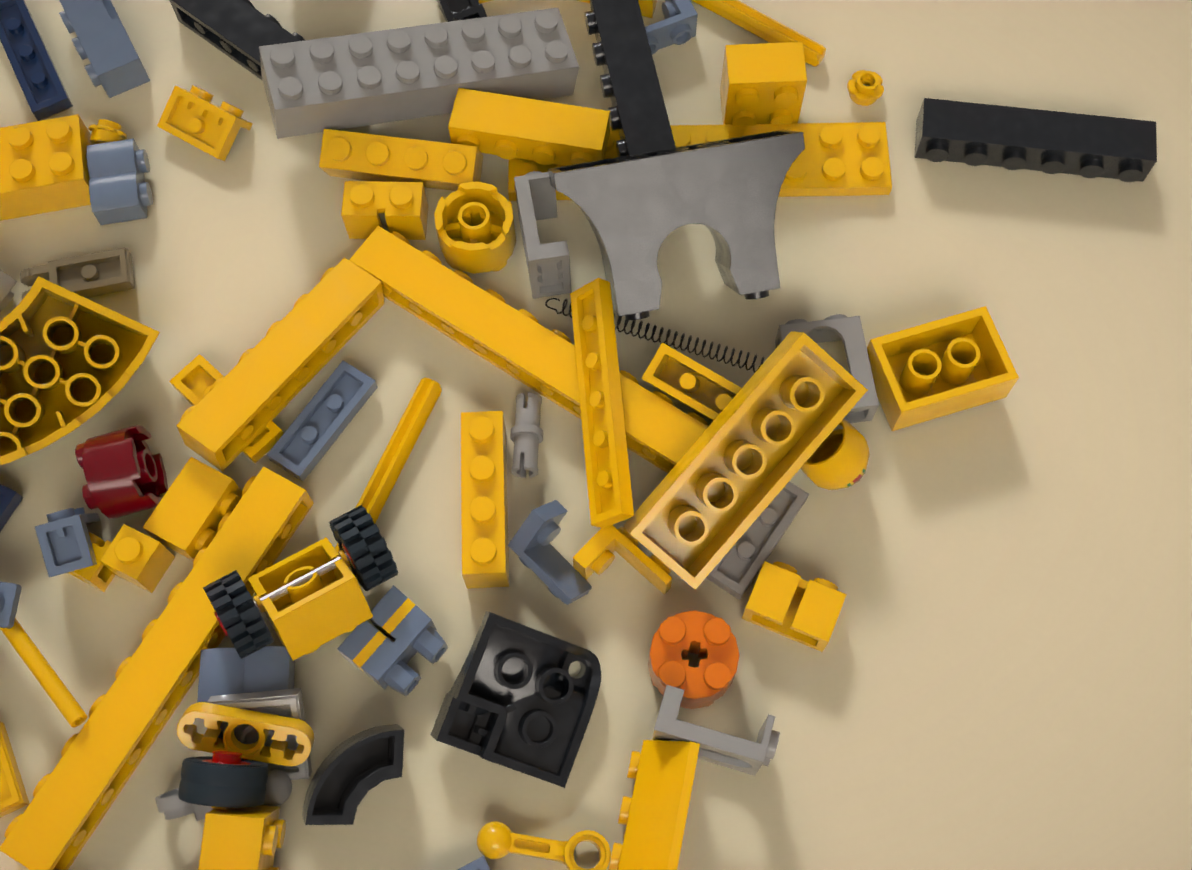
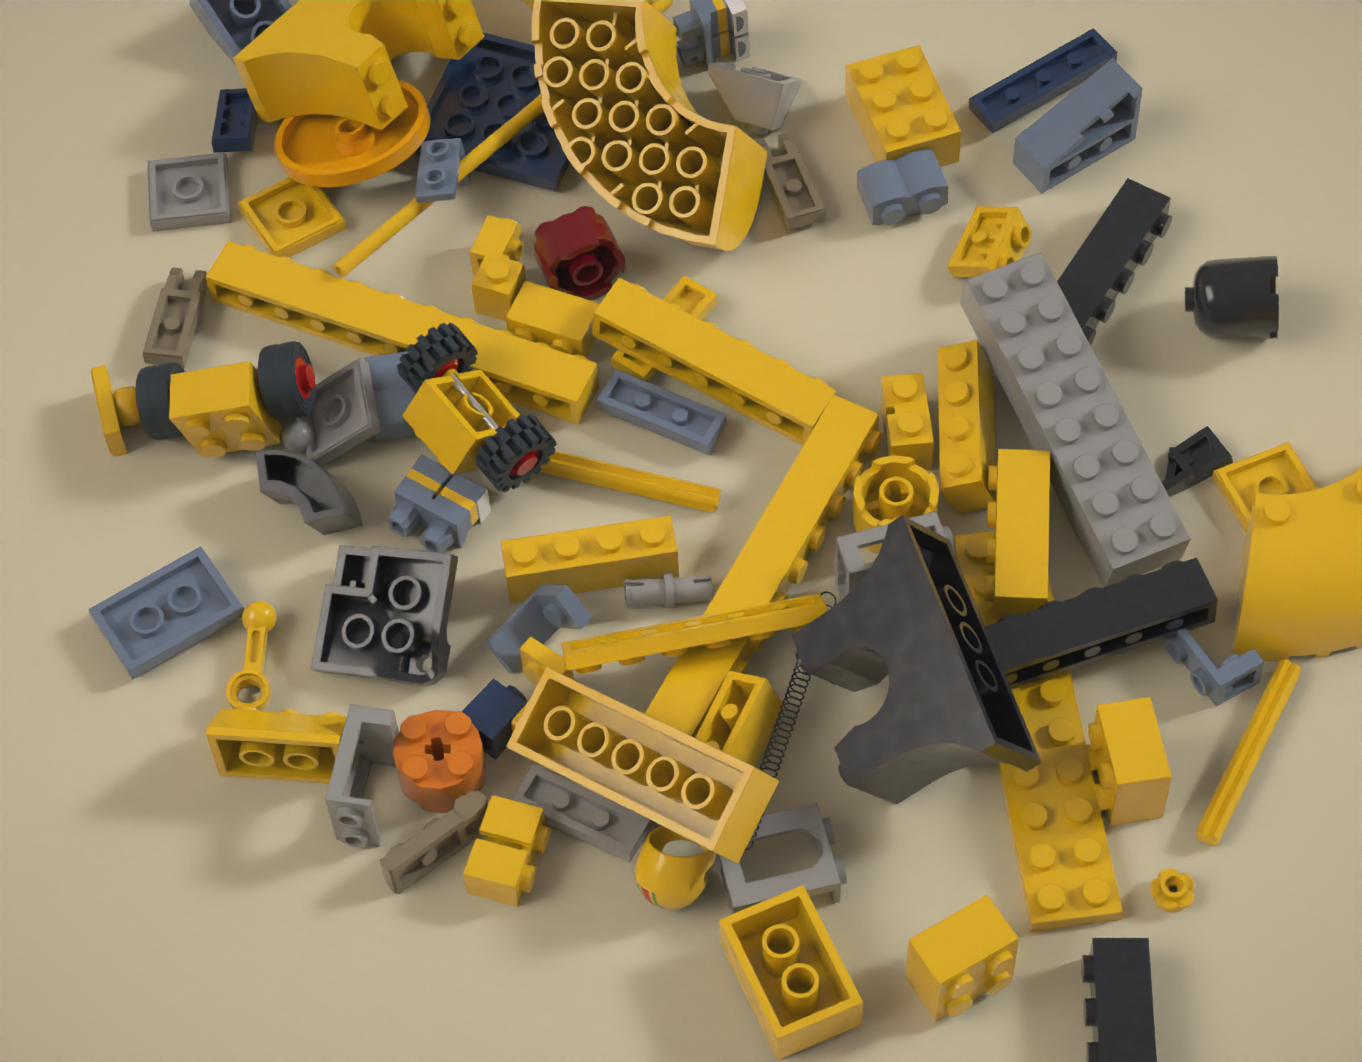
camera: 85 degrees right, 10 degrees down
(67, 541) = (499, 220): sand blue bracket -> none
(106, 131) = (957, 167): yellow plate -> none
(263, 722) = (333, 421): yellow beam -> none
(646, 602) = (492, 715): none -> dark blue brick
(775, 668) = (435, 843): none -> dark tan hinge
(937, 231) = (962, 958): none -> yellow brick

